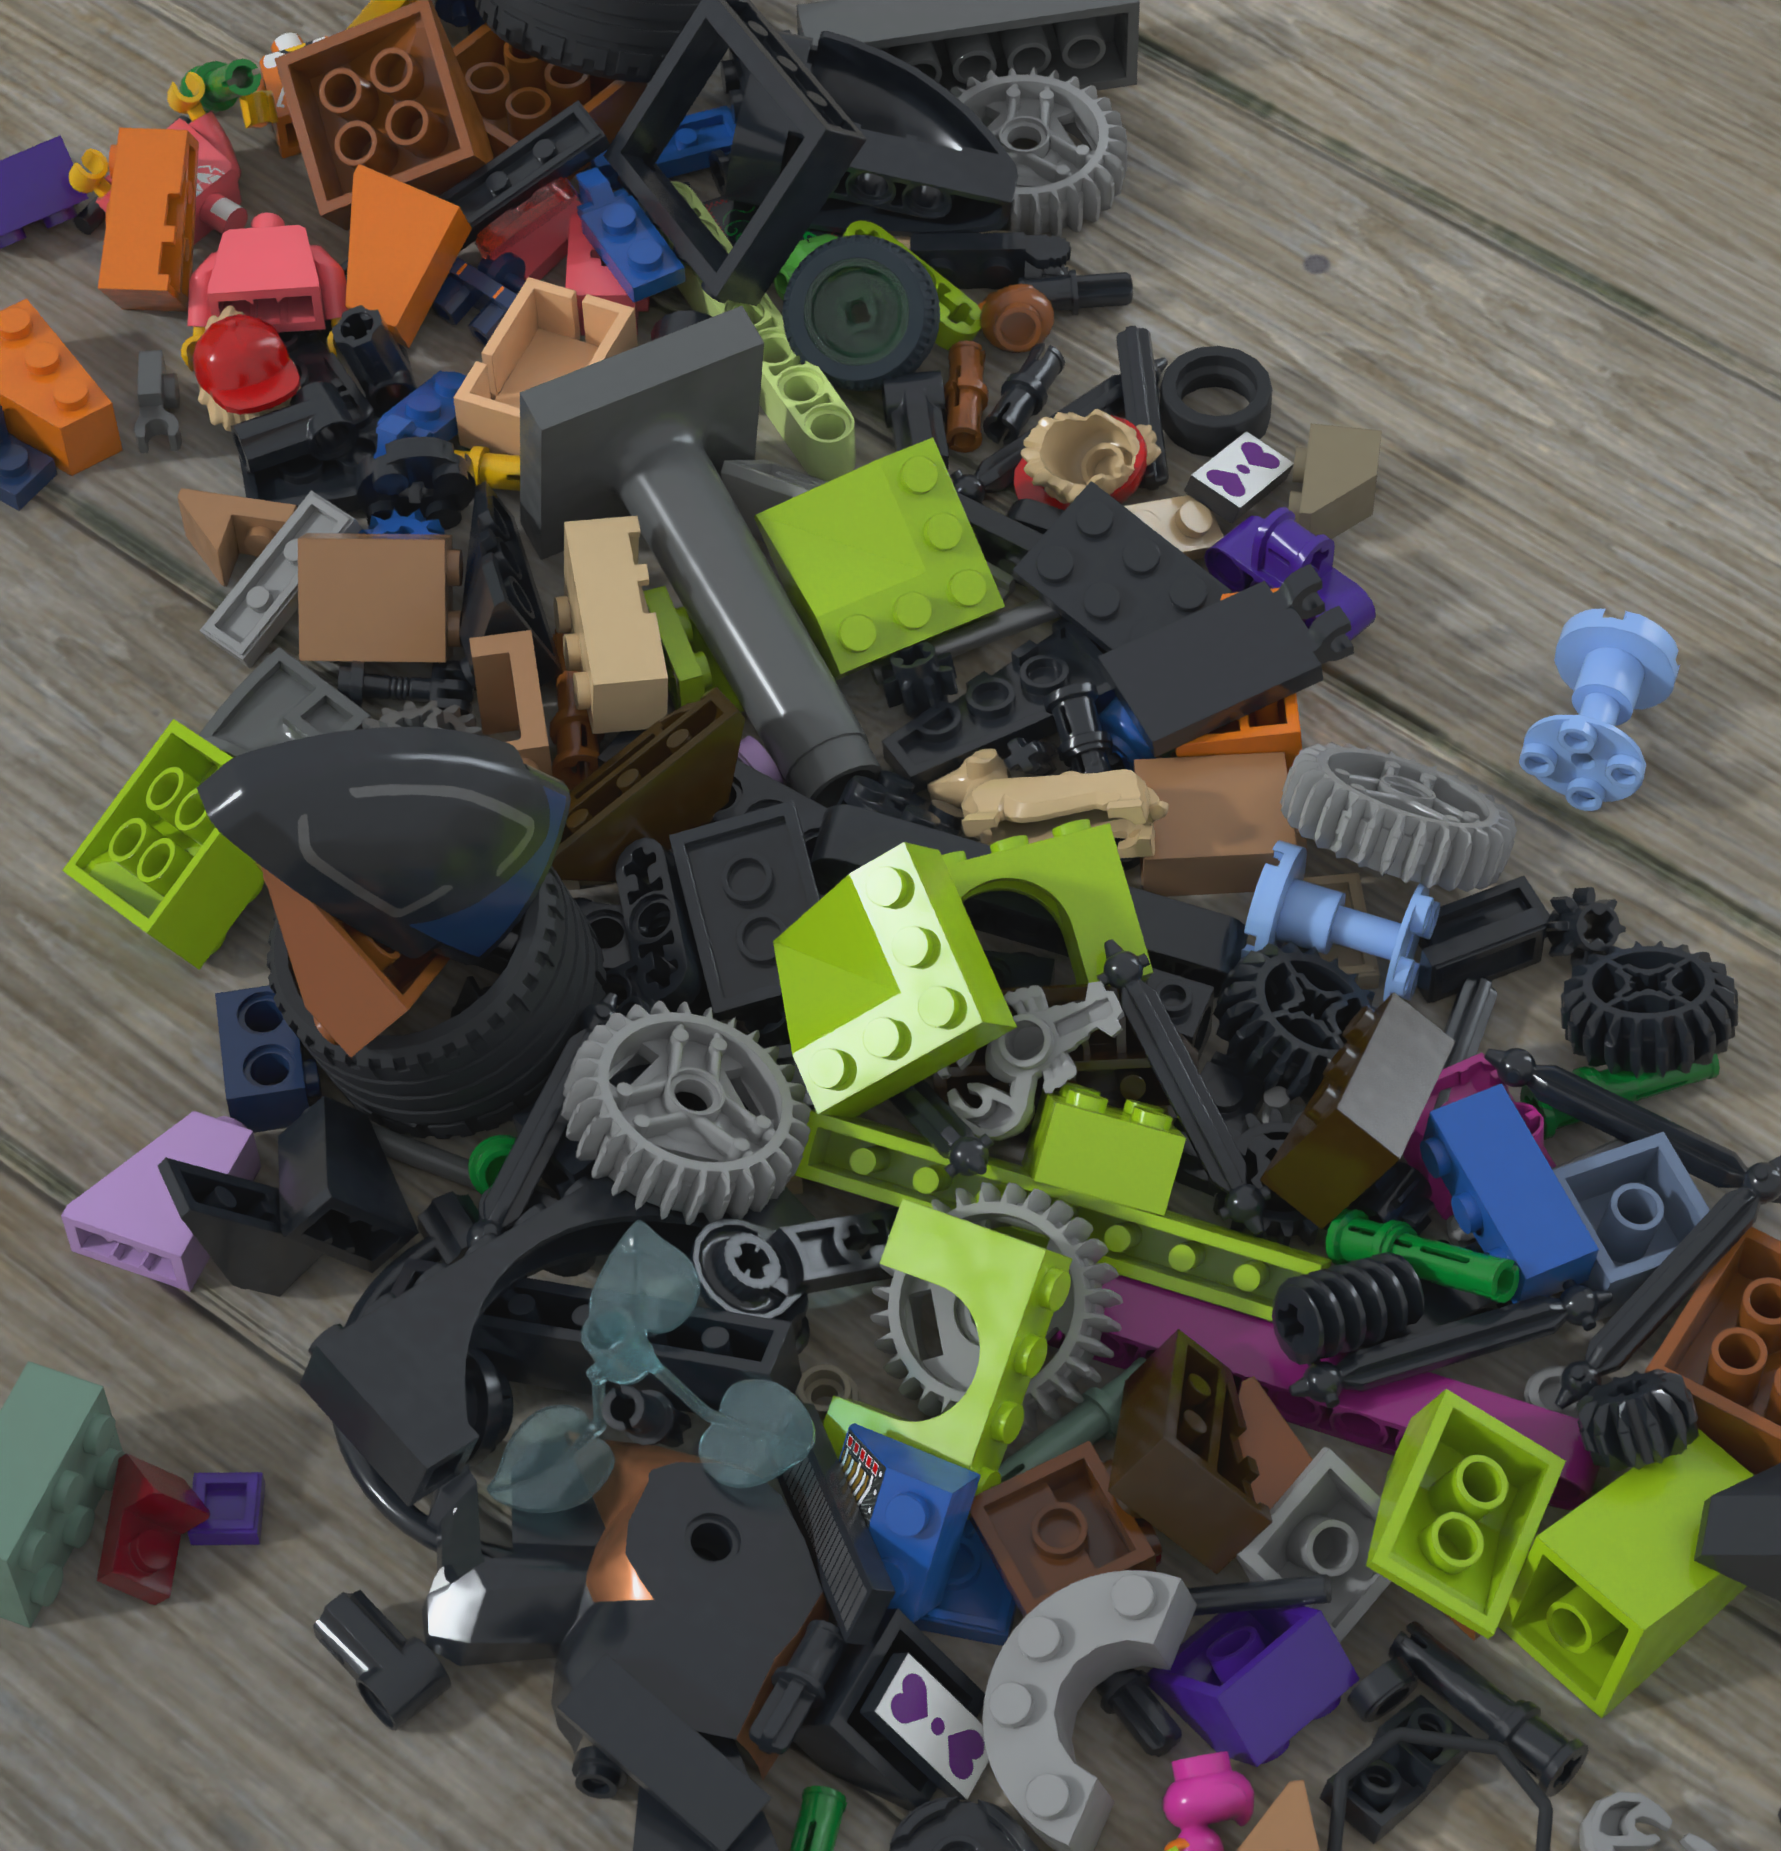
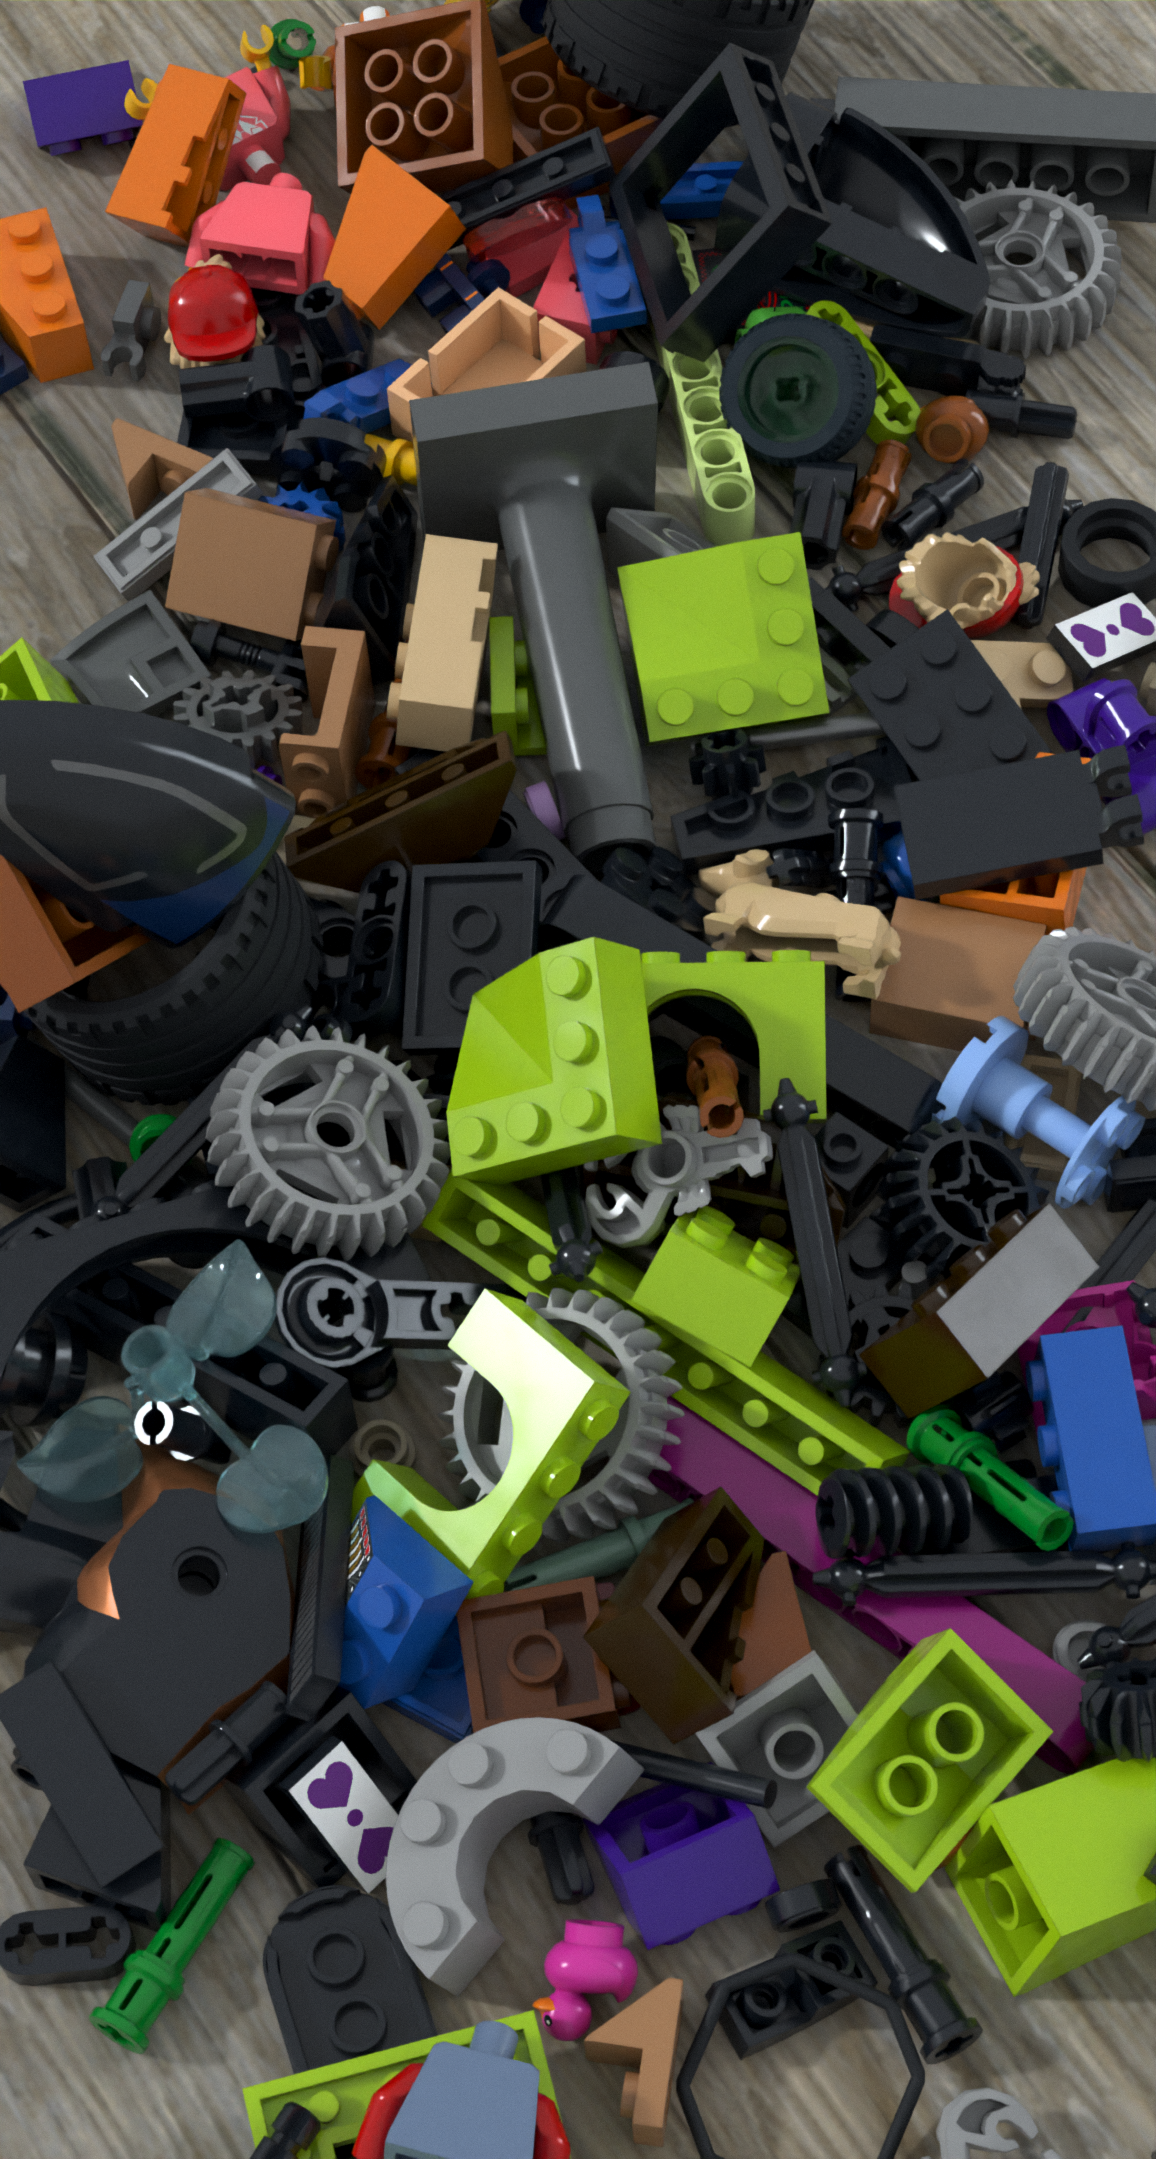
camera: 20 degrees right, 5 degrees up
(1040, 950) = (714, 1086): none -> dark orange pin

